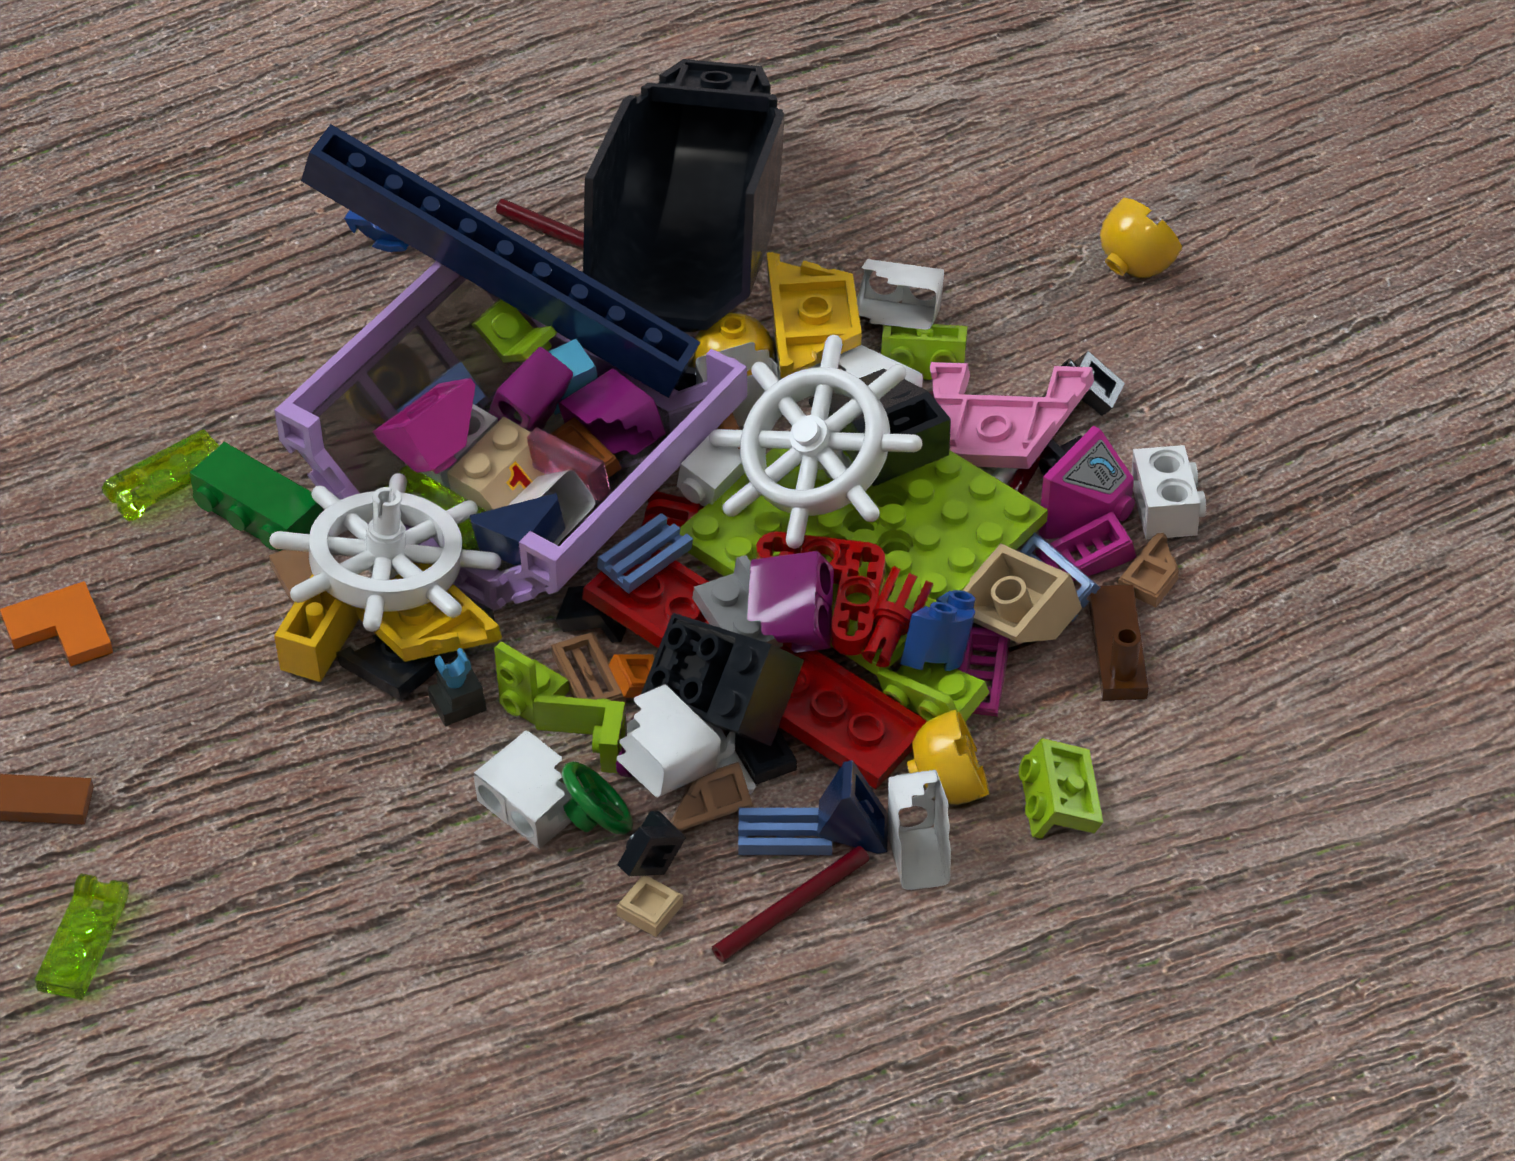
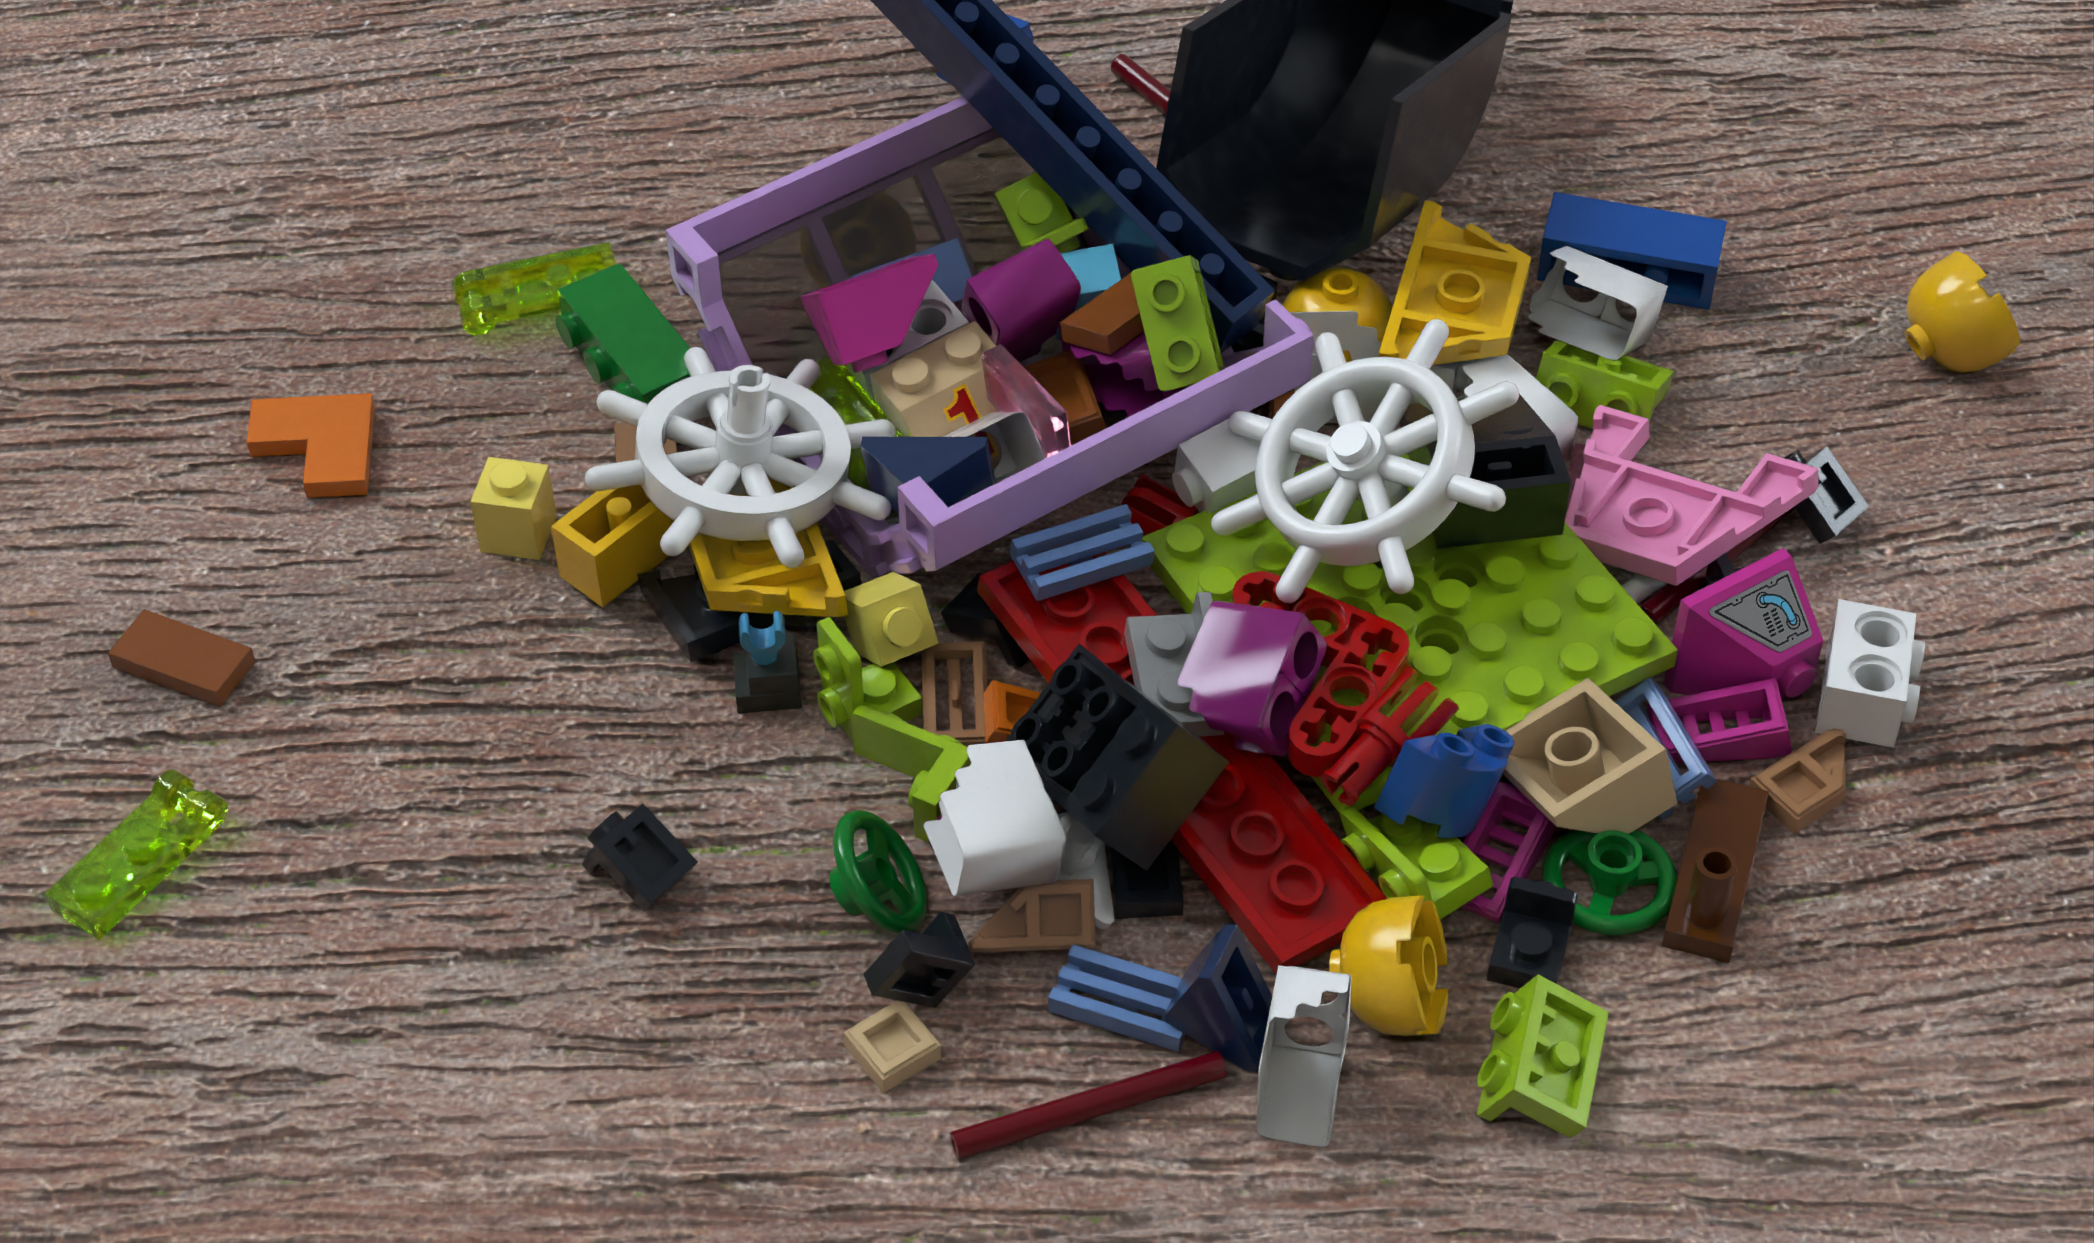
camera: 20 degrees right, 0 degrees up
(230, 632) = (513, 508): none -> light yellow brick
(429, 835) = (639, 855): none -> black bracket
(525, 789) = (789, 827): white piece -> none
(530, 630) = (889, 619): none -> light yellow brick
(606, 383) = (1106, 320): none -> dark orange tile
(650, 383) = (1177, 322): none -> lime bracket
(923, 242) = (1648, 241): none -> blue brick
(1023, 715) = (1532, 933): none -> black bracket
(1055, 659) = (1613, 866): none -> green piece

